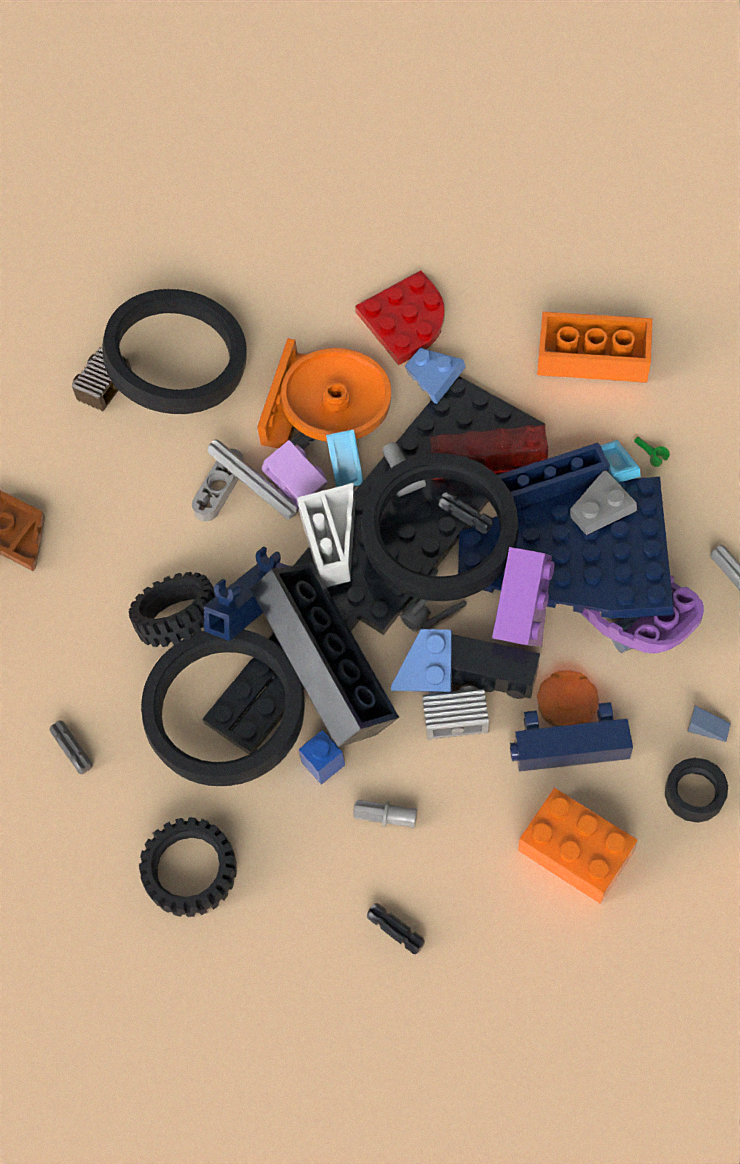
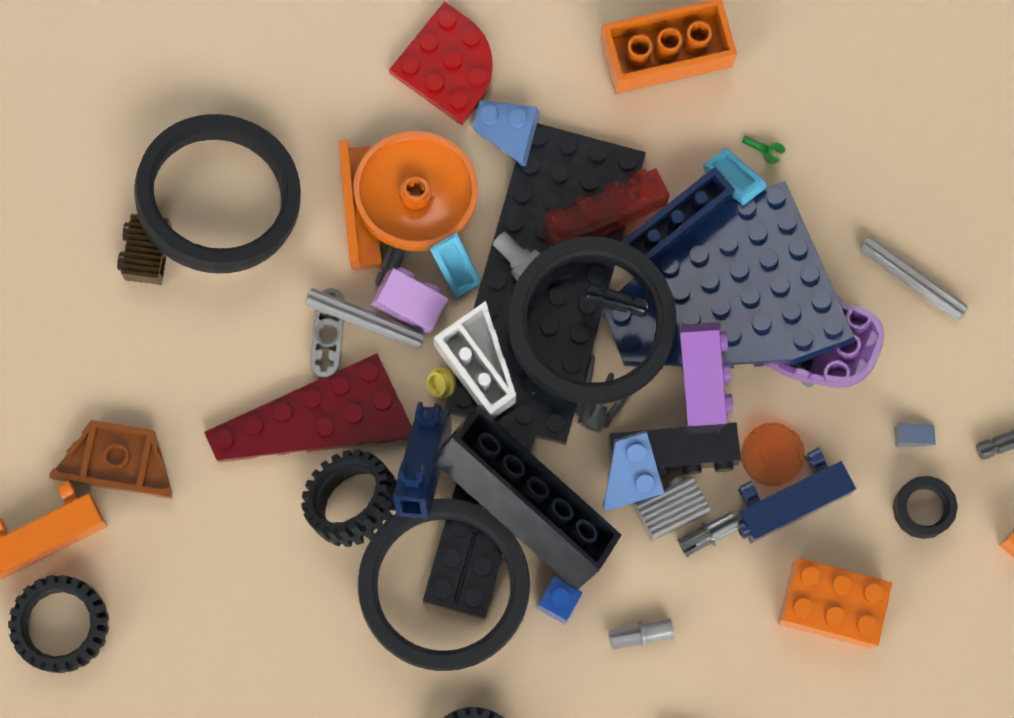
camera: 30 degrees left, 15 degrees up
(71, 747) = (300, 676): dark grey axle -> none
(210, 544) = (331, 413): none -> dark red wing
(294, 548) = (441, 382): none -> light yellow plate
(481, 746) = (708, 534): none -> dark grey axle
(602, 504) = (741, 236): light grey wing -> none

